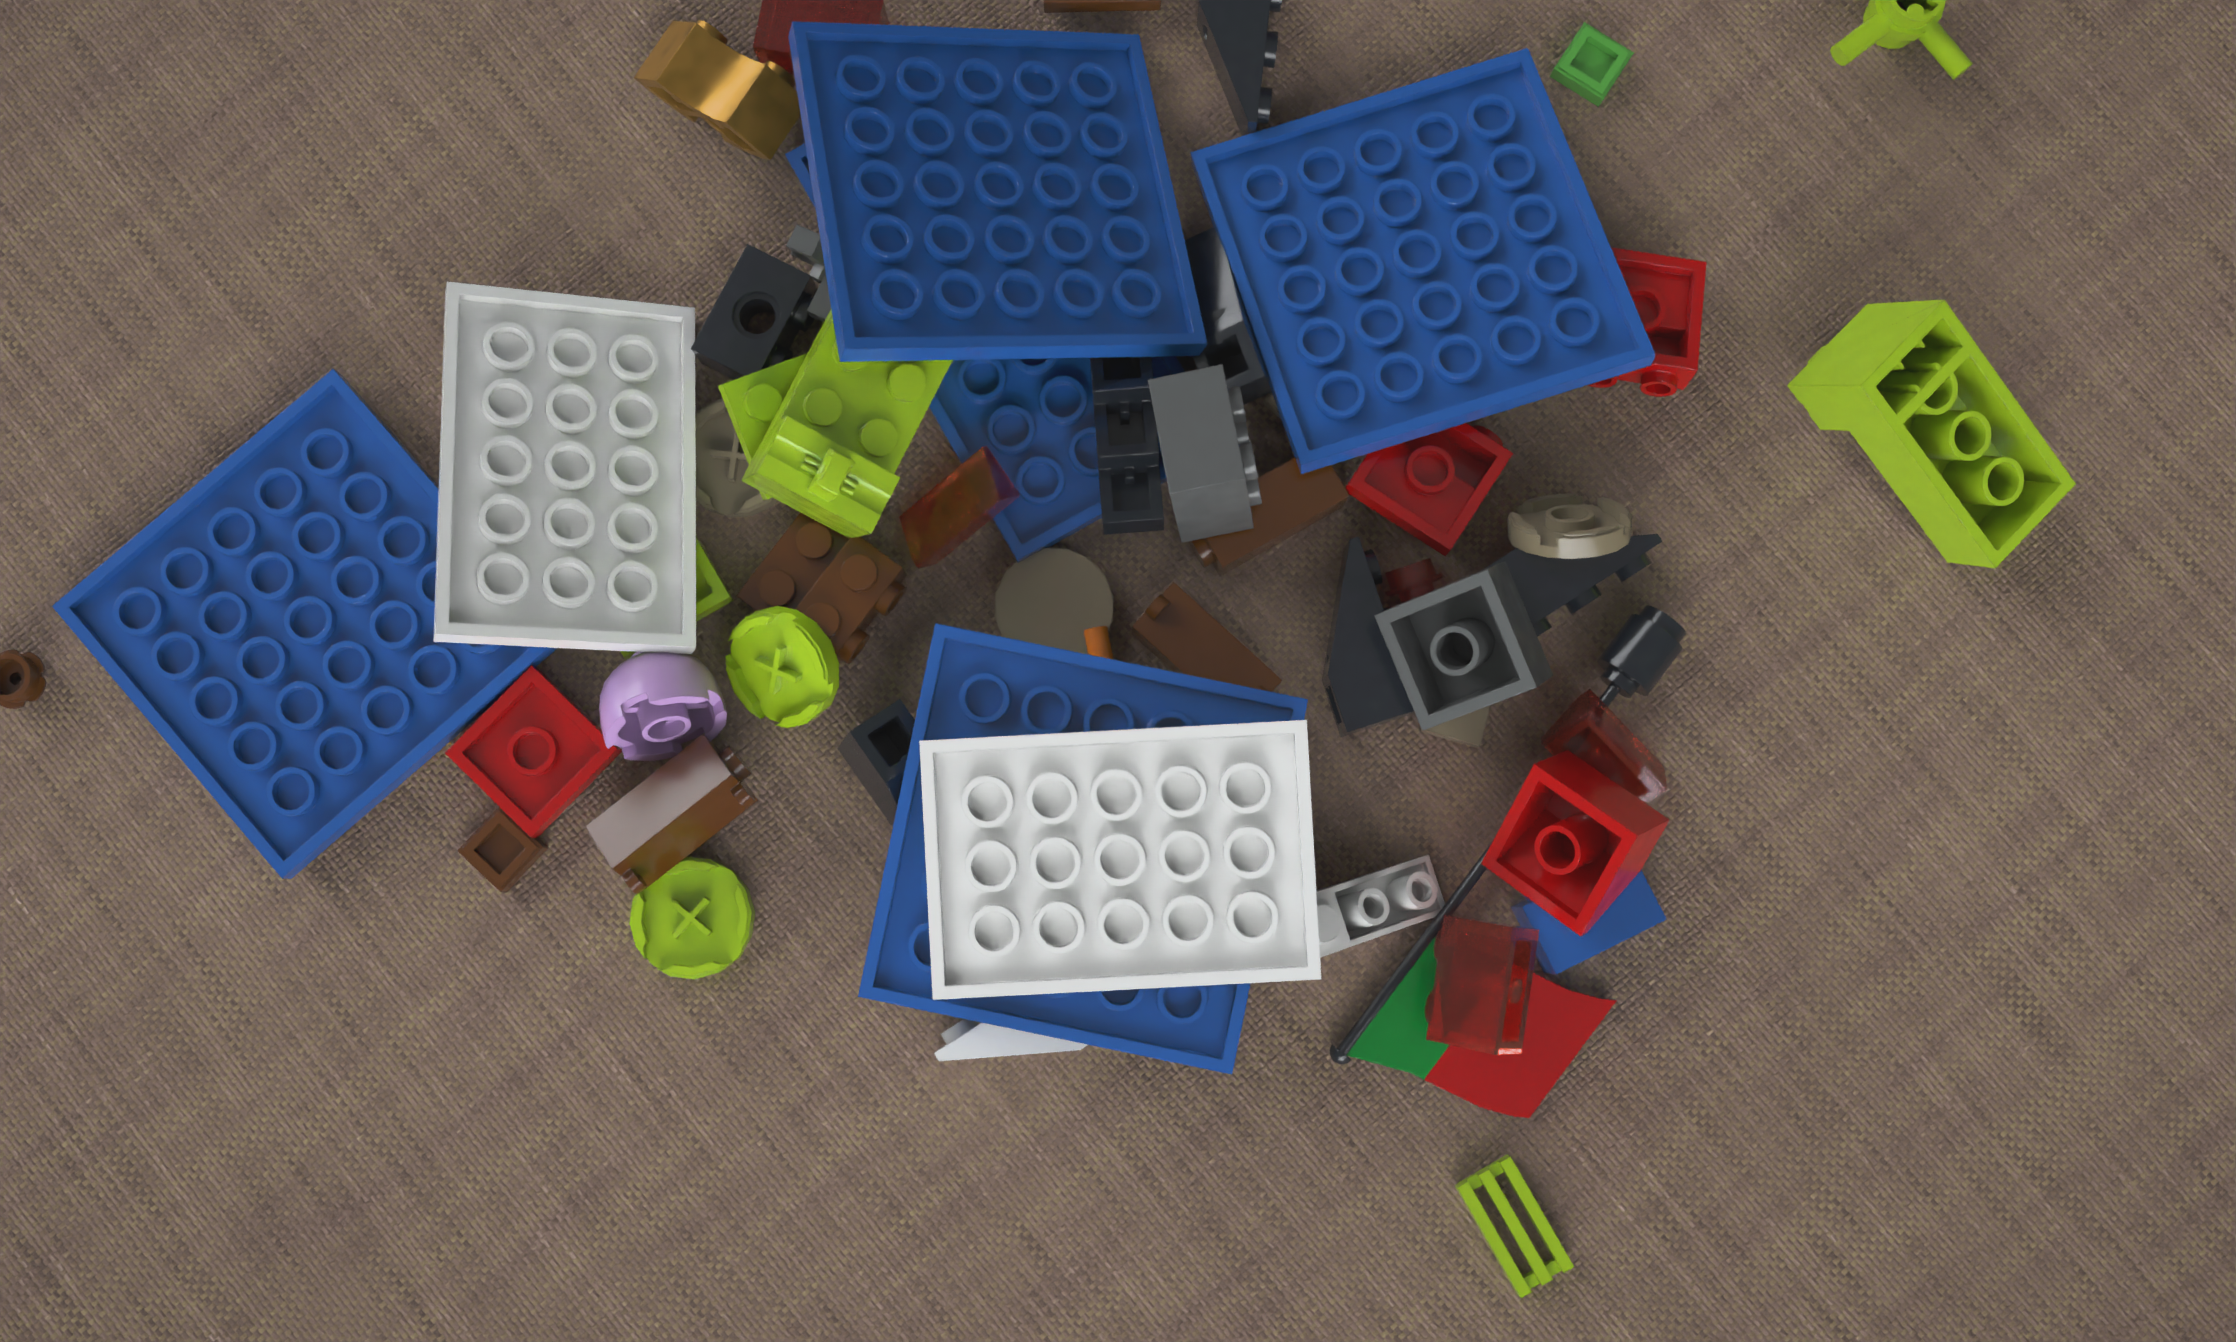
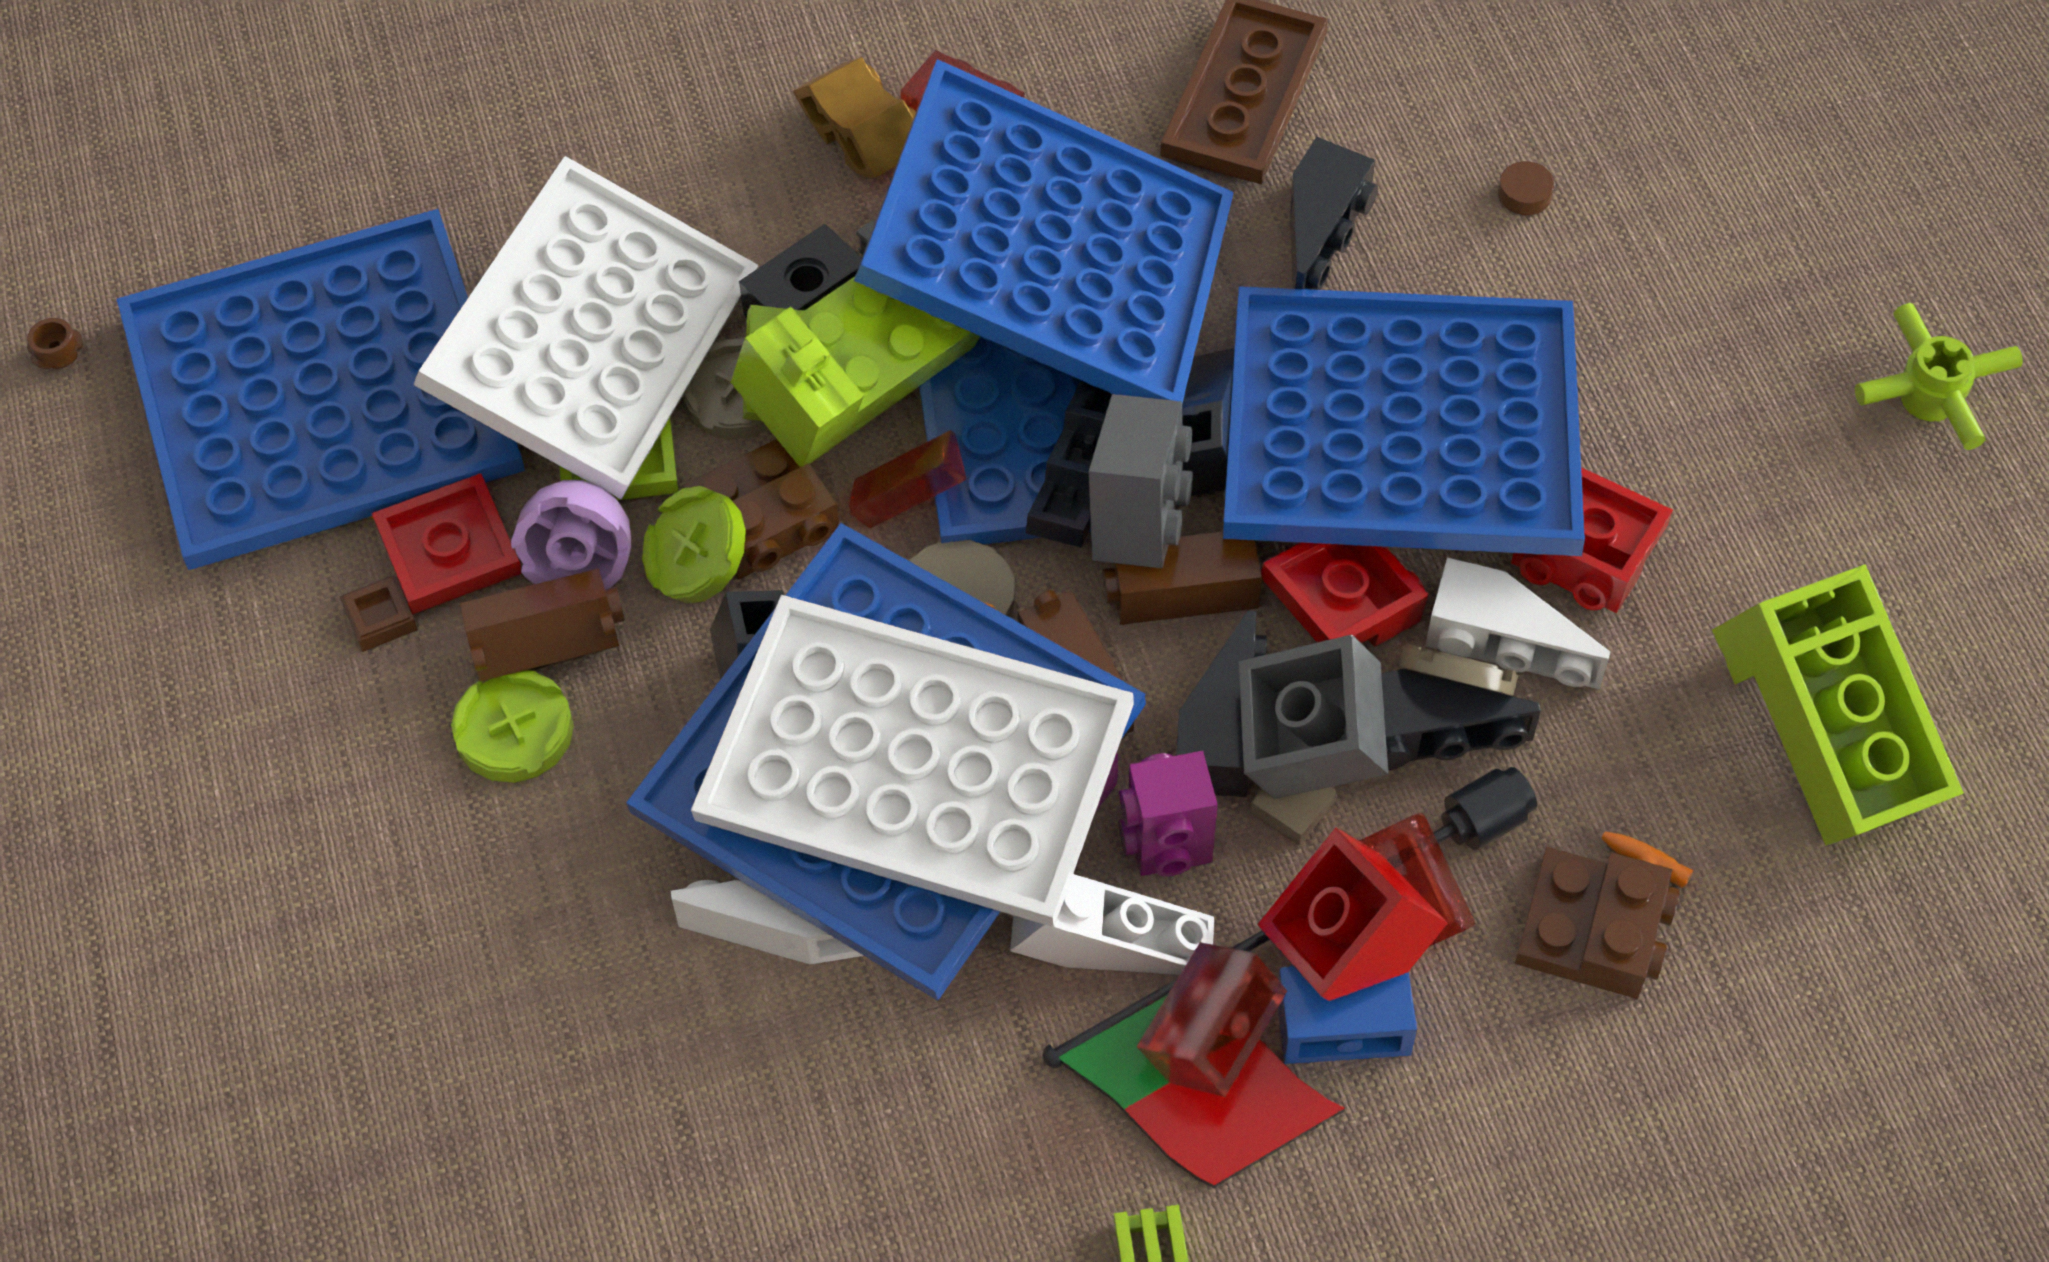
camera: 25 degrees right, 25 degrees down
(1362, 789) = (1169, 814): none -> magenta brick
(1582, 444) = (1502, 622): none -> white slope
(1591, 64) = (1631, 341): bright green tile -> none
(1775, 725) = (1598, 921): none -> reddish brown plate
(1796, 640) = (1639, 850): none -> orange helmet

